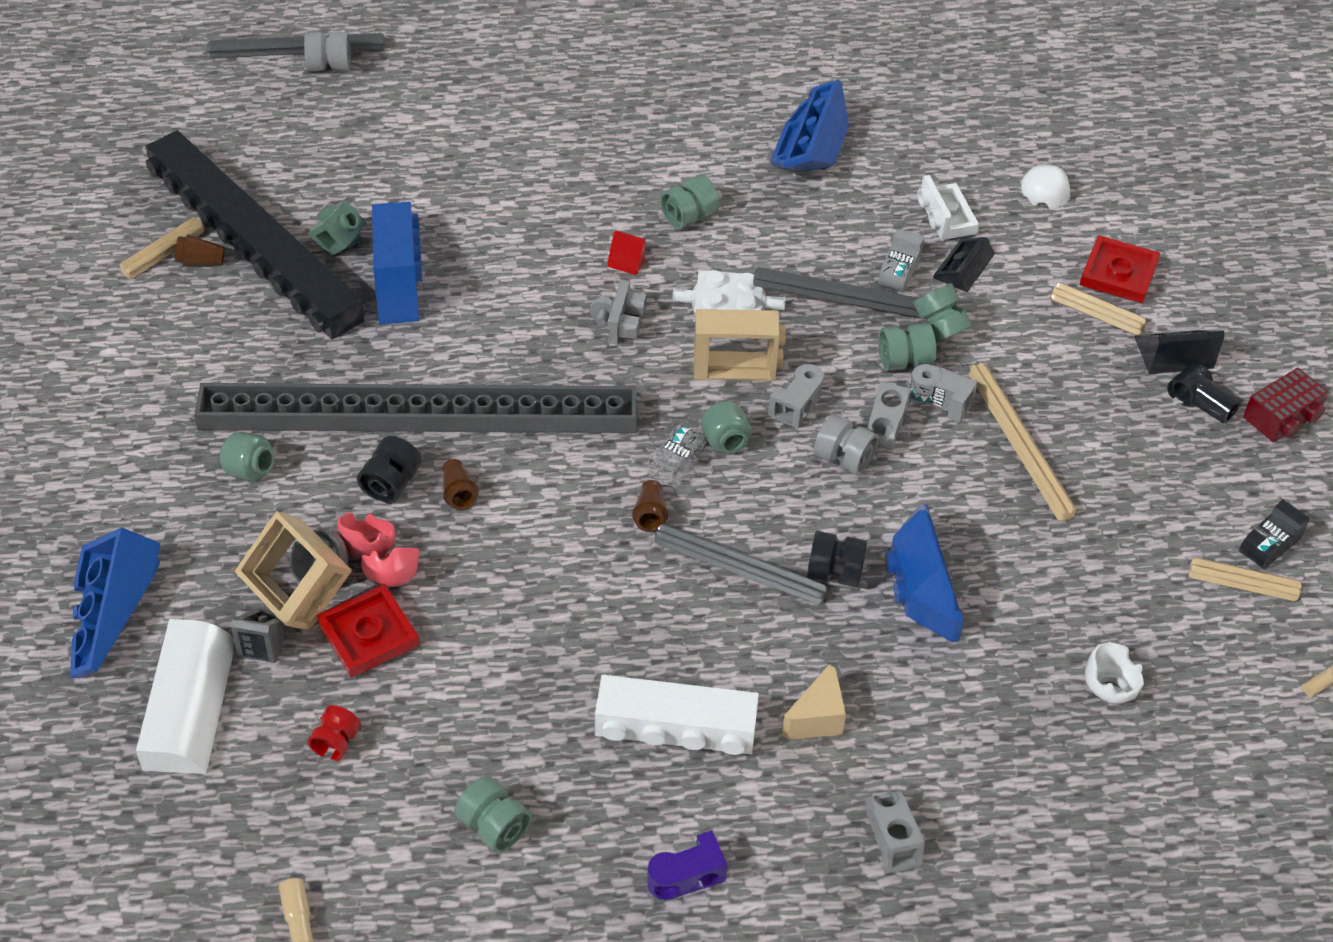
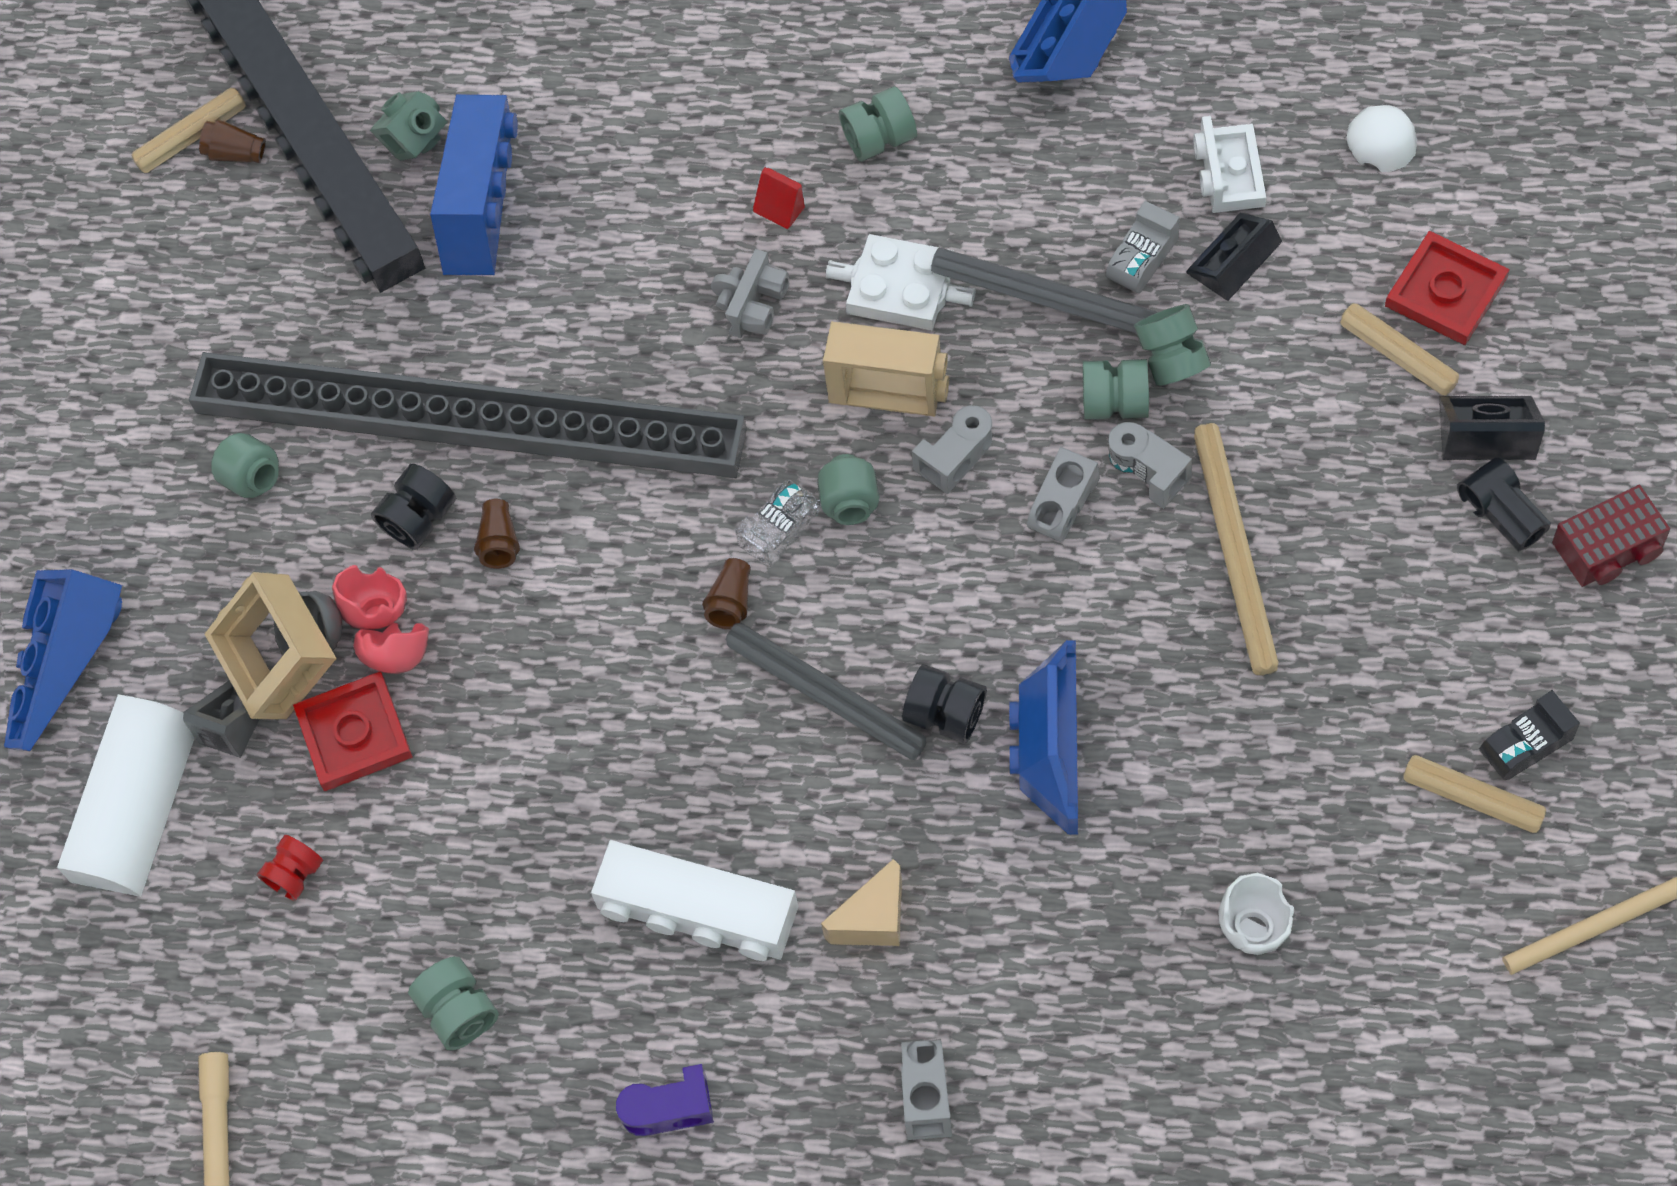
camera: 20 degrees right, 15 degrees up
(849, 446) = (991, 529): light grey wheel -> none

